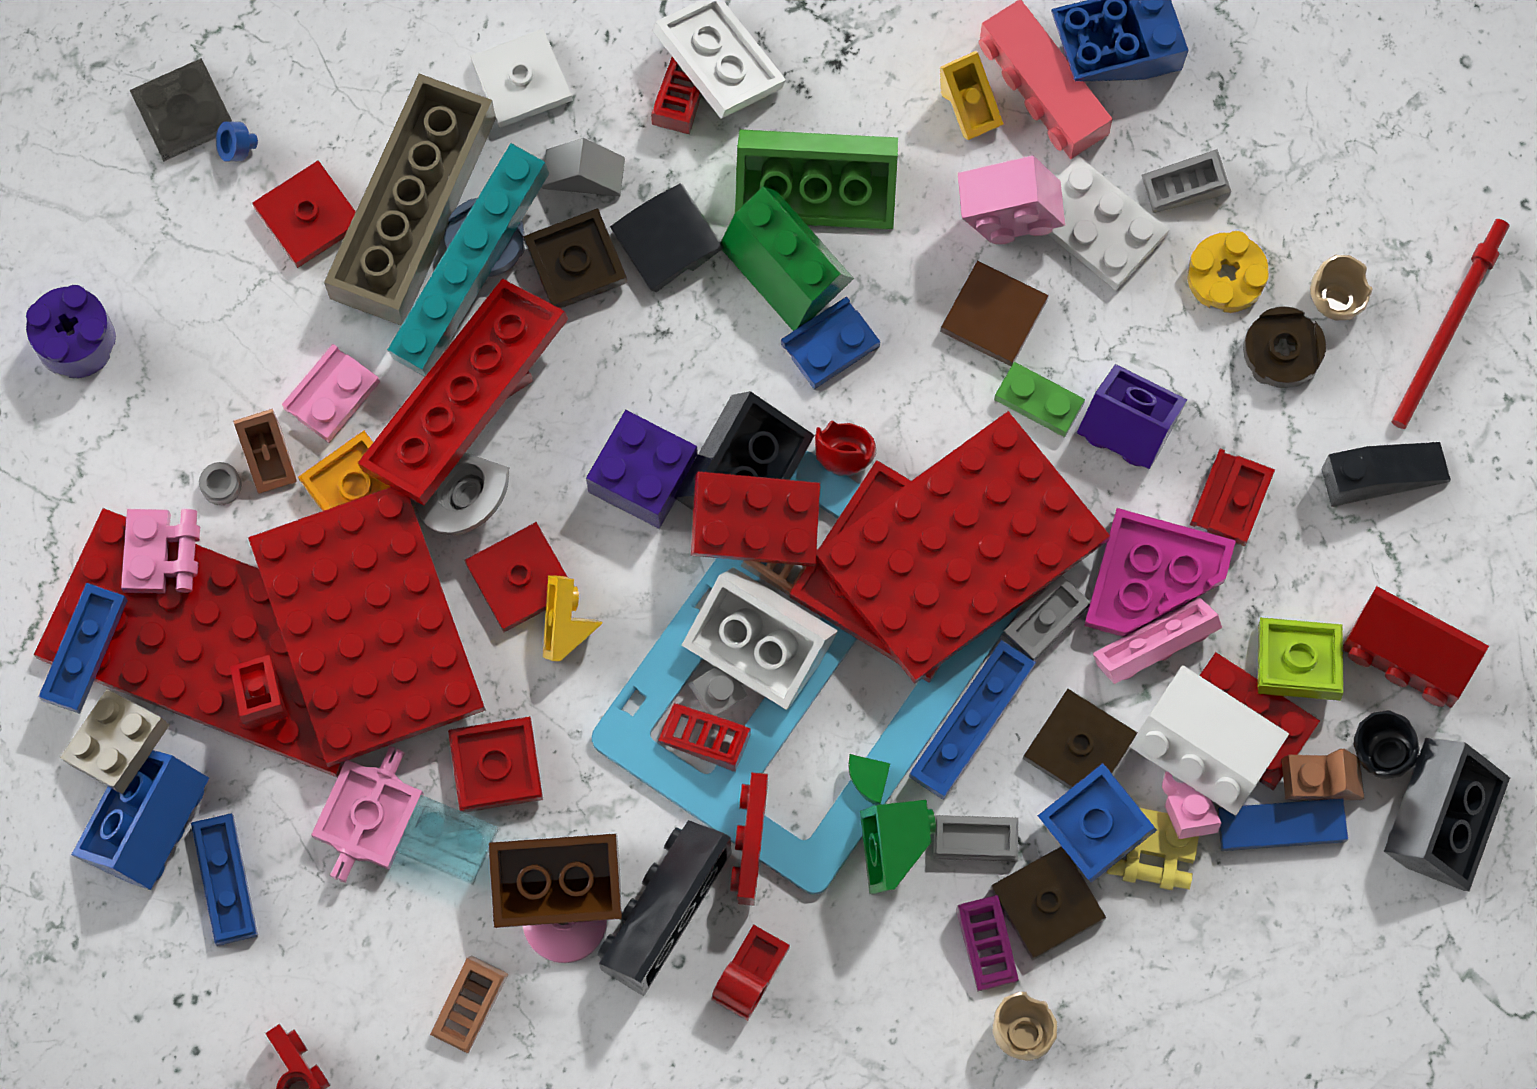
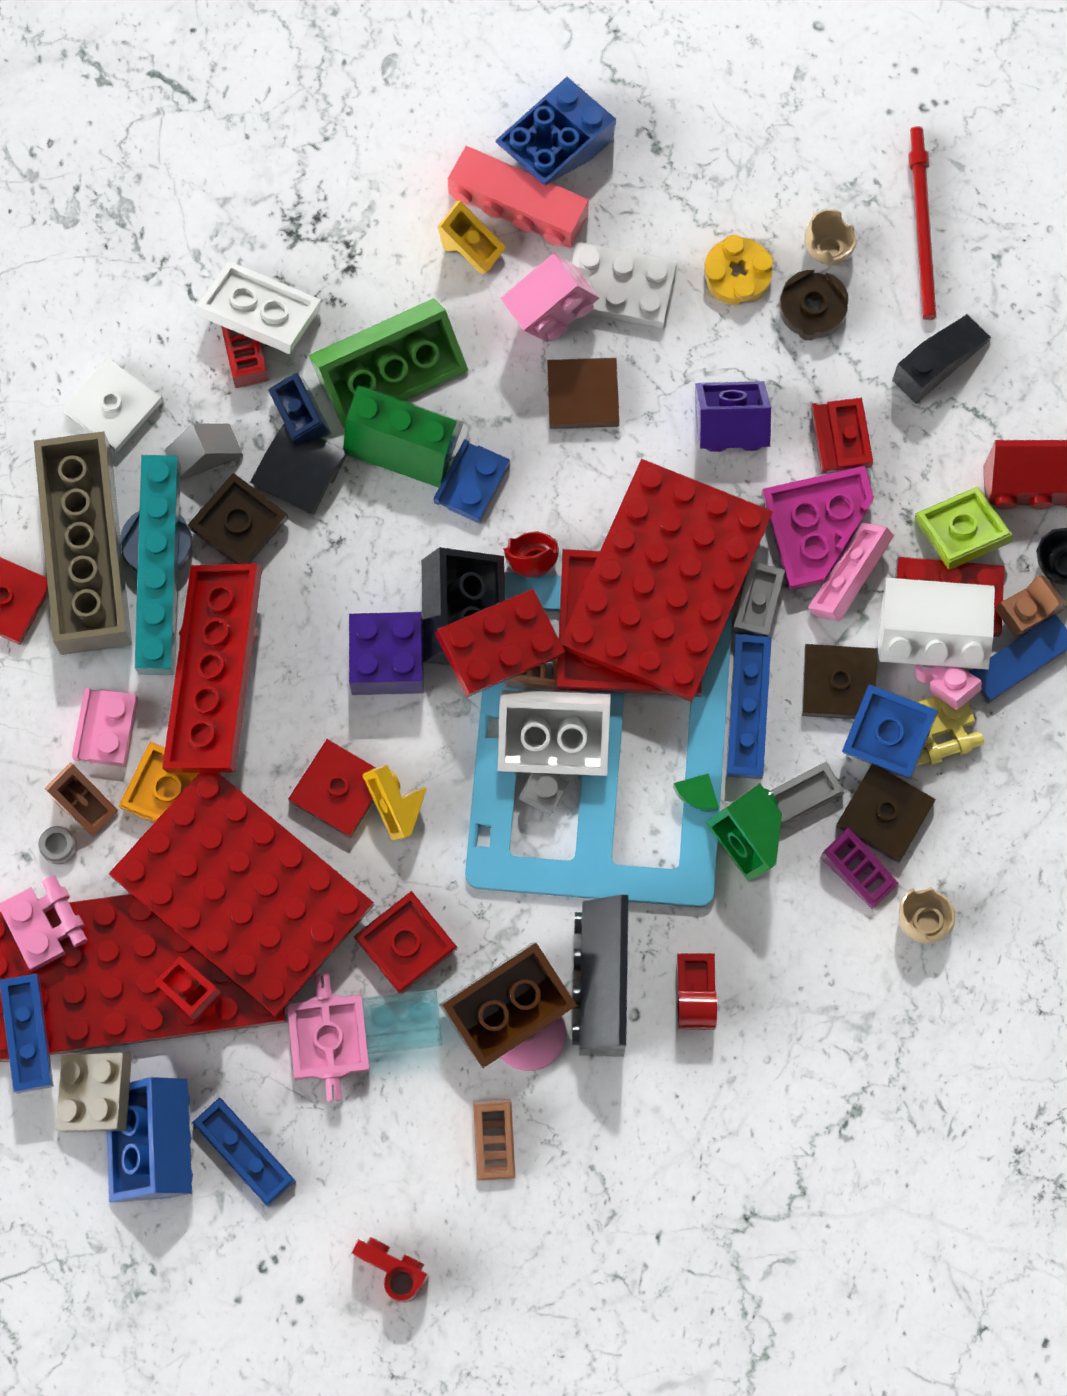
camera: 30 degrees left, 0 degrees up
(466, 496) = (264, 748): light grey hat -> none
(699, 179) = (299, 409): none -> dark blue slope
(713, 755) = (564, 815): red slope -> none
(749, 838) = (651, 920): red plate -> none
(1039, 399) = (655, 439): bright green plate -> none
(1183, 168) = (677, 194): light grey slope -> none

